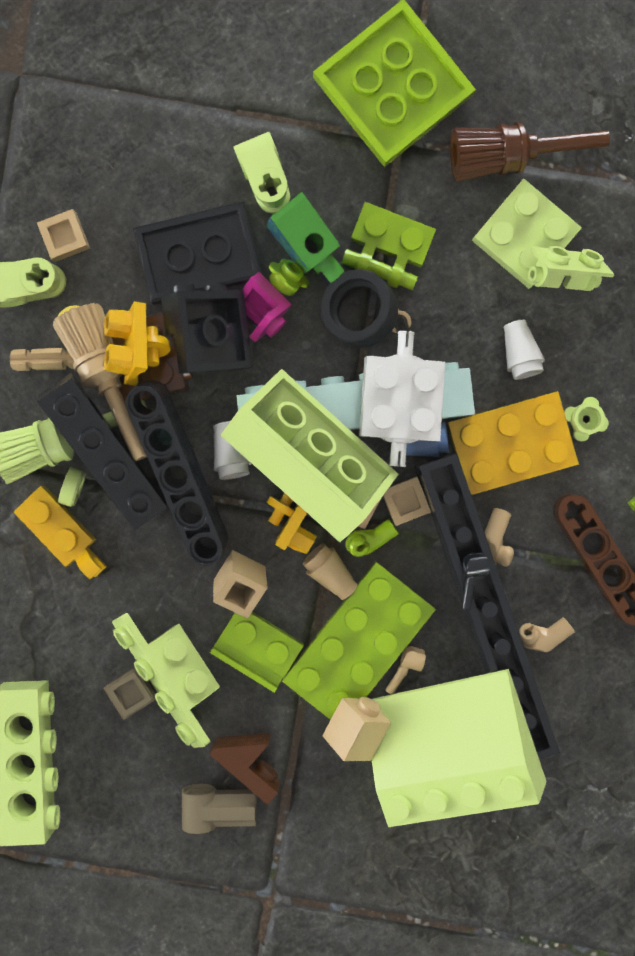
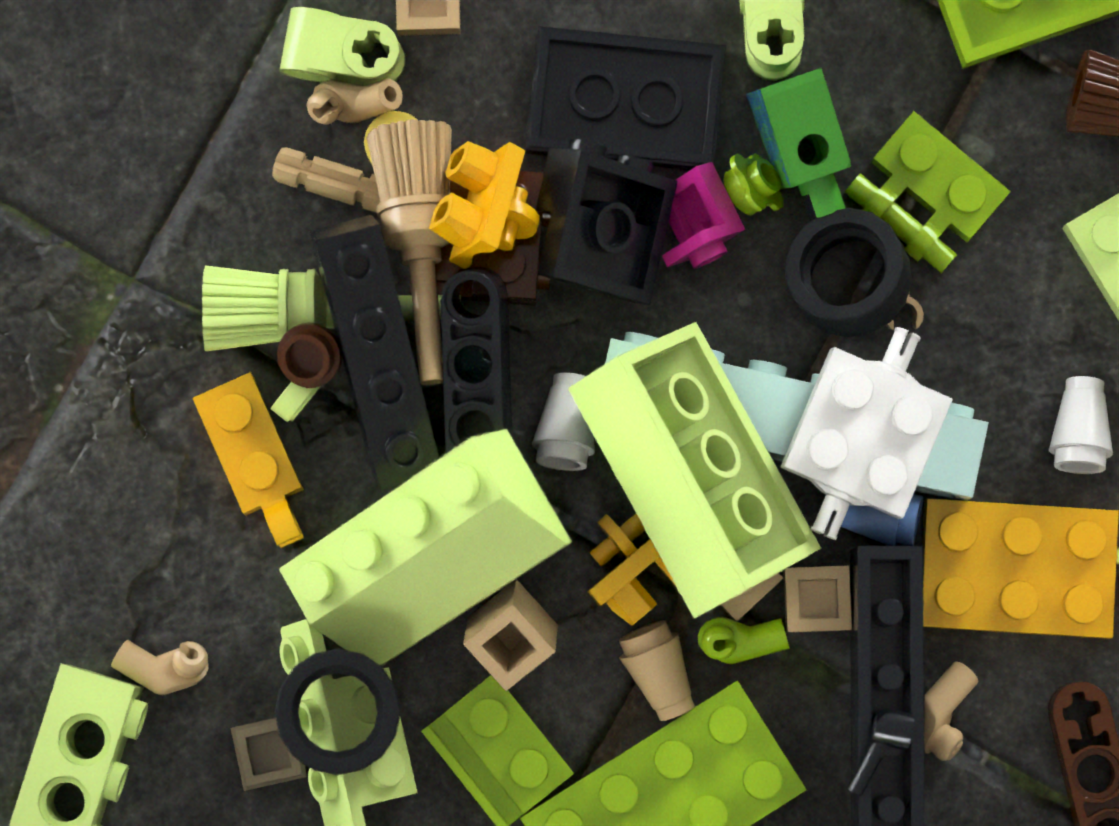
camera: 20 degrees right, 5 degrees down
(41, 309) = (352, 101): none -> tan arm
(55, 670) = (164, 672): none -> tan arm
(65, 467) = (309, 355): none -> reddish brown plate
(149, 696) = (330, 663): none -> black tyre
(173, 555) = (427, 550): none -> yellowish green slope

